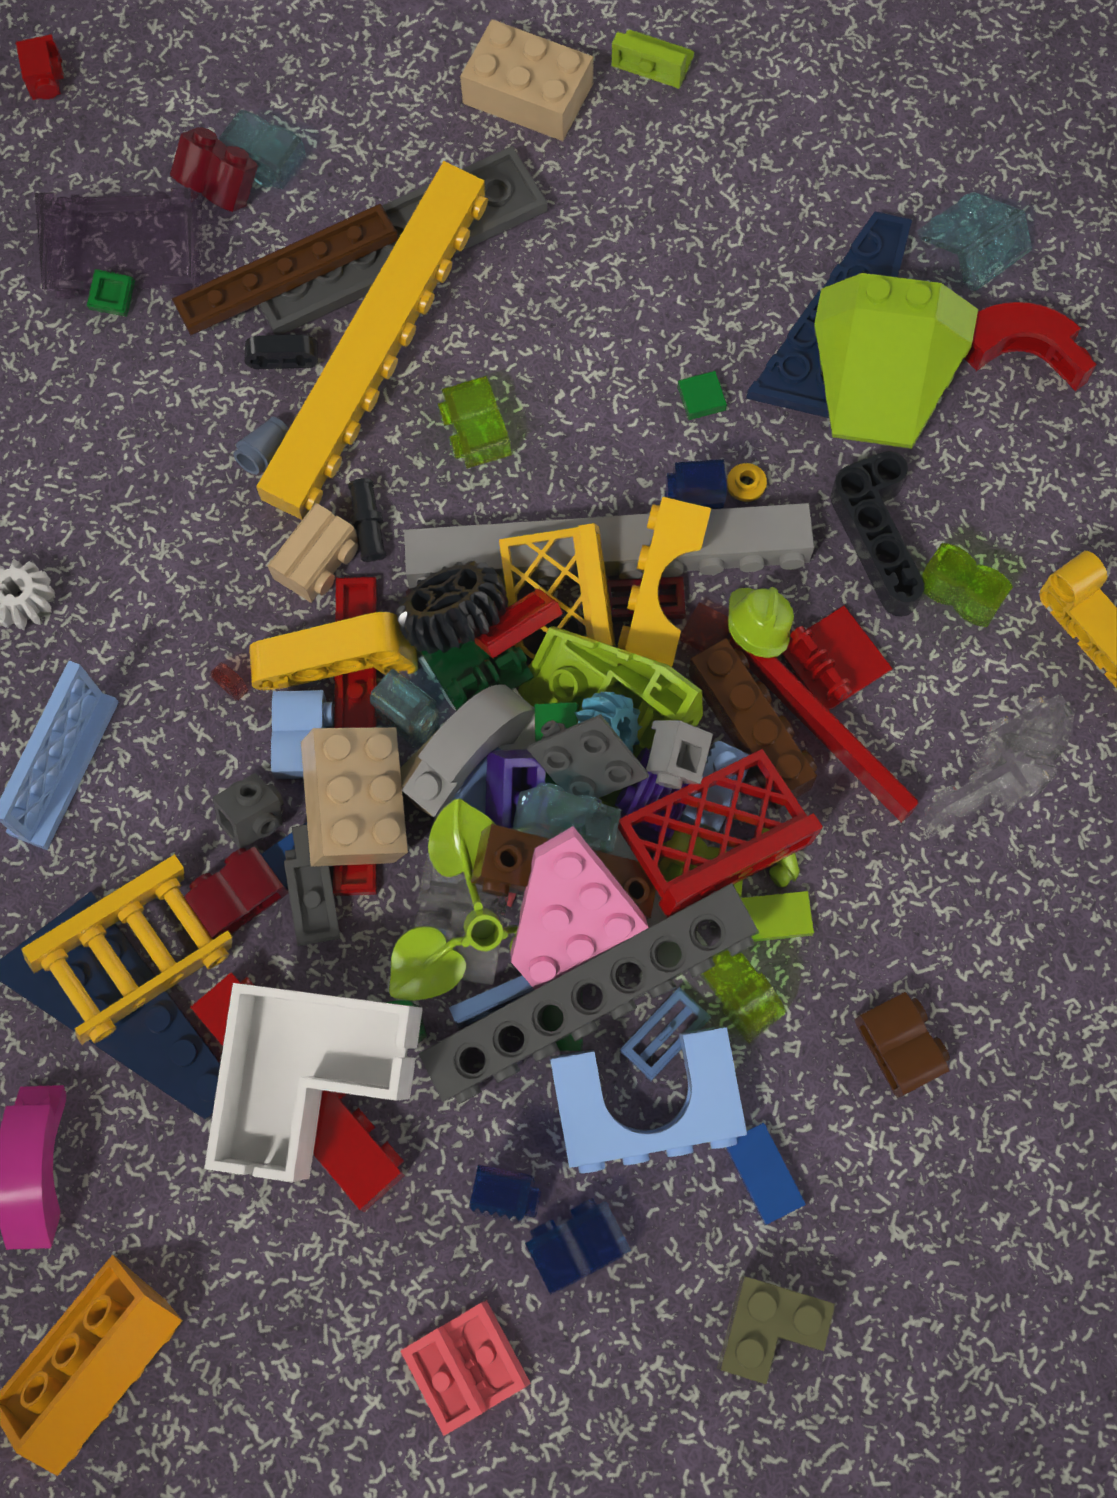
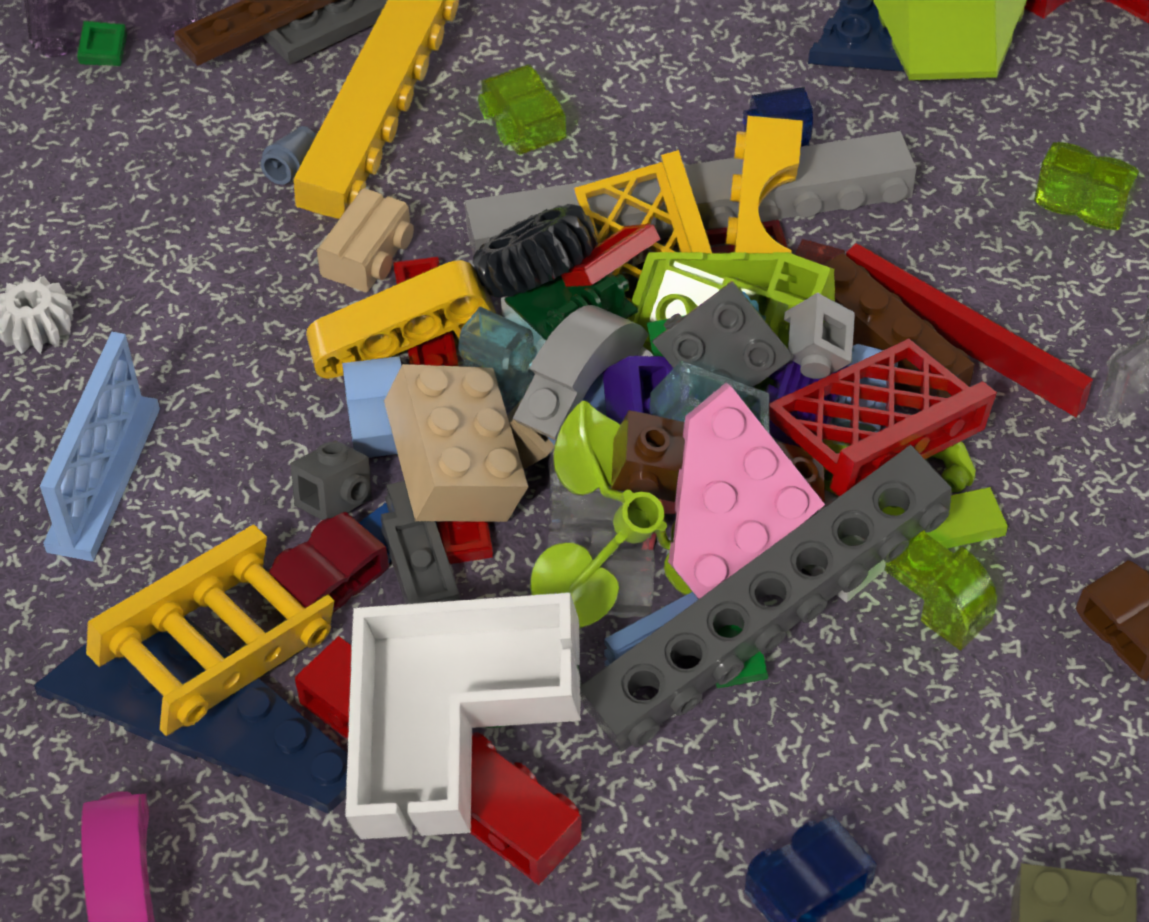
camera: 10 degrees left, 20 degrees down
(229, 681) = (288, 368): clear red tile -> none
(281, 352) = (298, 72): black beam -> none
(367, 520) = (421, 207): black pin -> none
(504, 1195) = (712, 821): clear blue brick -> none
(639, 1061) = (840, 680): medium blue tile -> none
(702, 395) = (760, 65): green tile -> none
(708, 1114) = (806, 753): light blue arch -> none
(742, 491) = (828, 129): yellow plate -> none
(760, 621) = (877, 234): lime piece -> none
(765, 1174) = (1013, 776): blue tile -> none
(835, 658) = (964, 269): red hinge -> none
(885, 536) = (958, 135): black beam -> none

